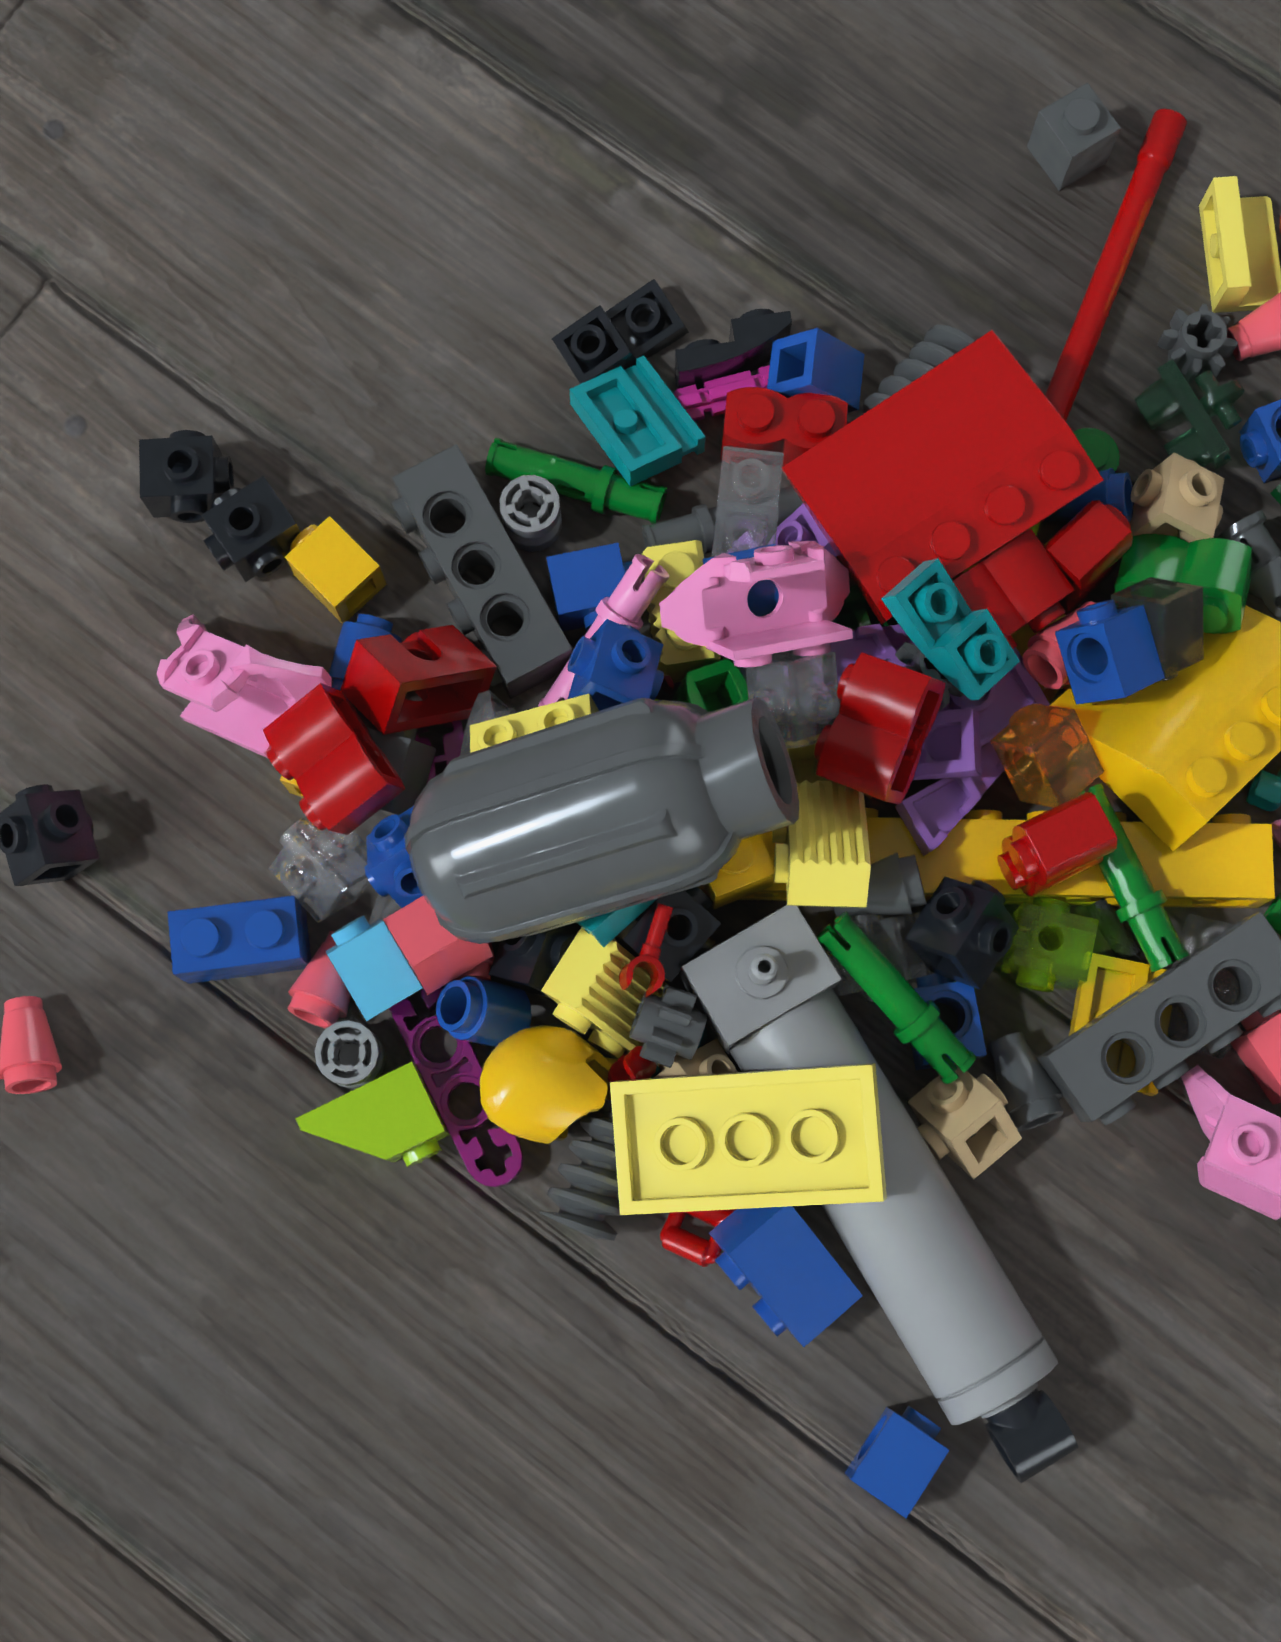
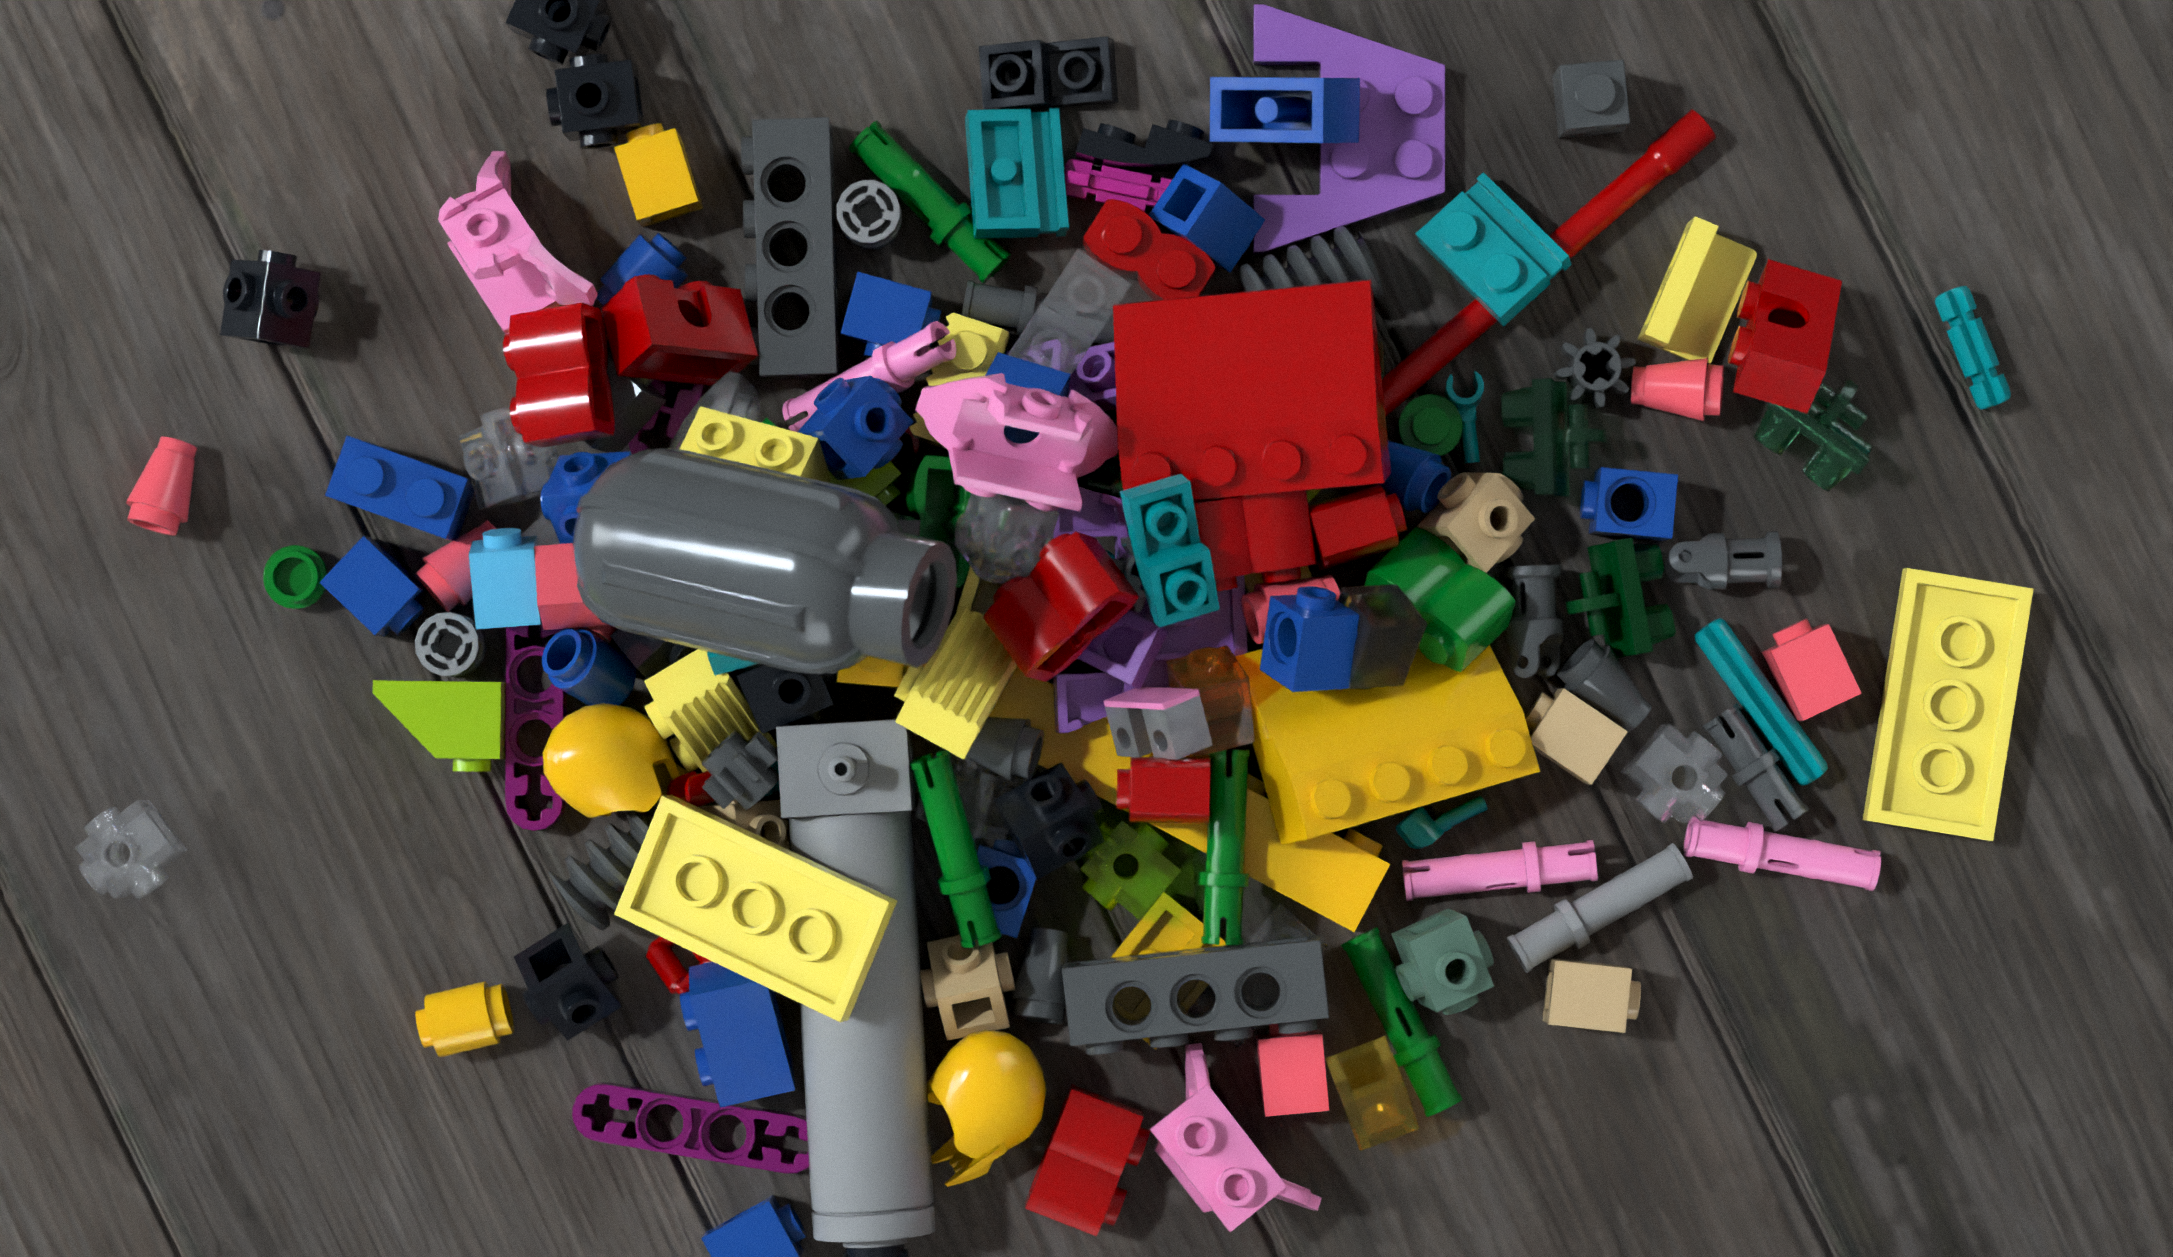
camera: 30 degrees right, 10 degrees up
(165, 1380) = (150, 844): none -> clear brick
(182, 1067) = (294, 576): none -> green plate
(259, 1039) = (376, 588): none -> blue brick
(528, 1388) = (465, 1018): none -> yellow brick
(617, 1310) = (568, 994): none -> black brick
(650, 953) = (752, 702): red hand -> none
(790, 1389) = (695, 1135): none -> magenta beam
(834, 253) = (1284, 109): none -> blue brick
(906, 243) = (1399, 130): none -> medium lavender wing
(1017, 787) = (1158, 721): none -> flat silver piece
(1045, 1208) = (992, 1099): none -> yellow helmet
(1062, 290) = (1493, 249): none -> teal plate
(1110, 409) = (1467, 410): none -> teal hand
(1151, 1227) = (1086, 1160): none -> red brick

